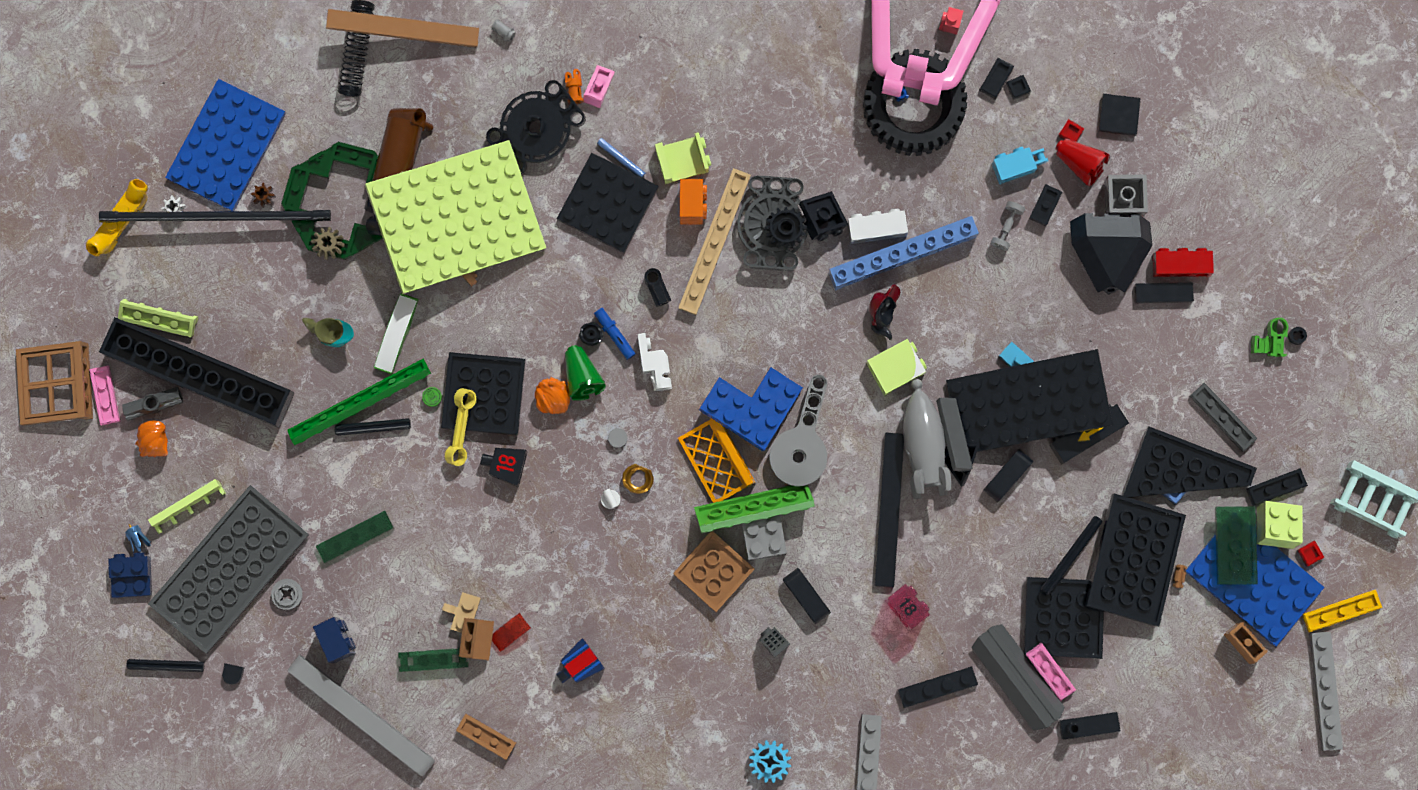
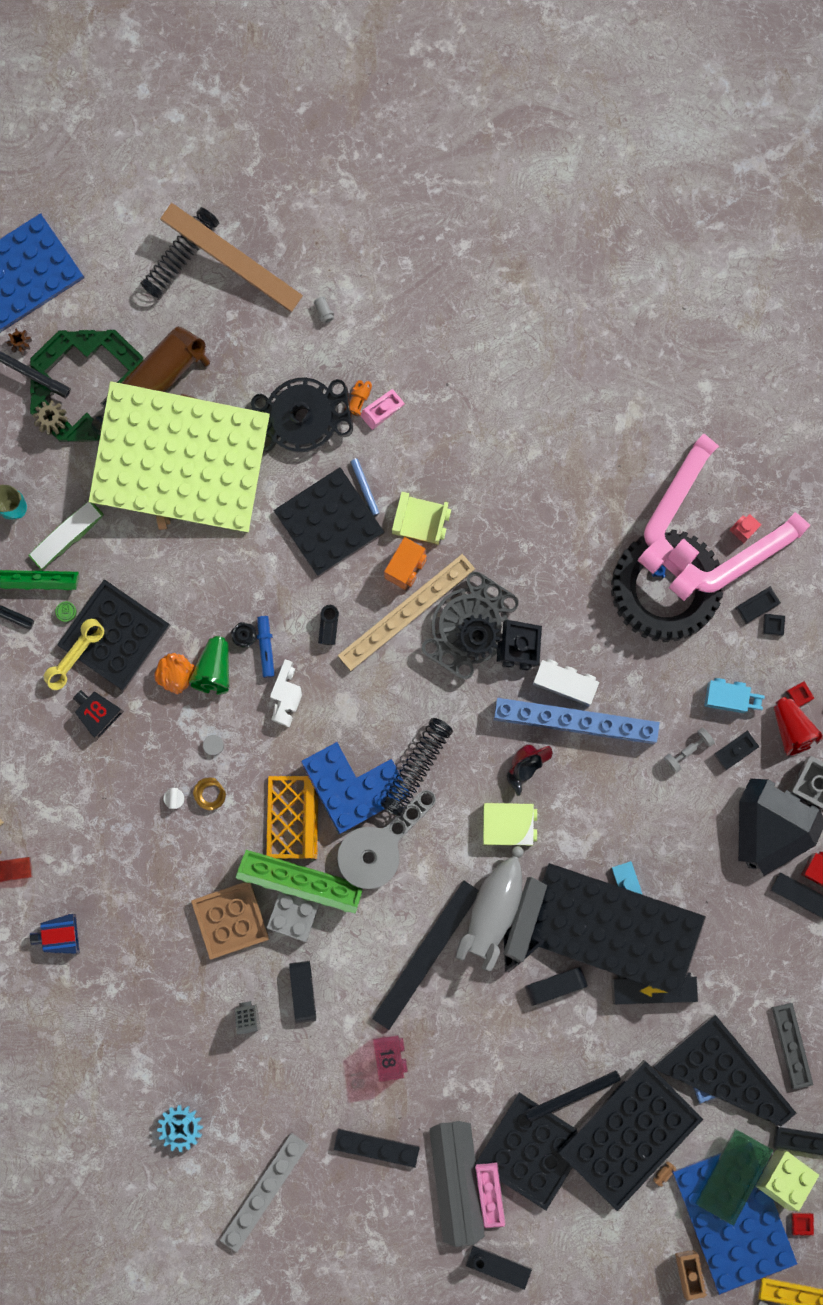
camera: 30 degrees right, 0 degrees up
(792, 399) = (391, 804): none -> black piece

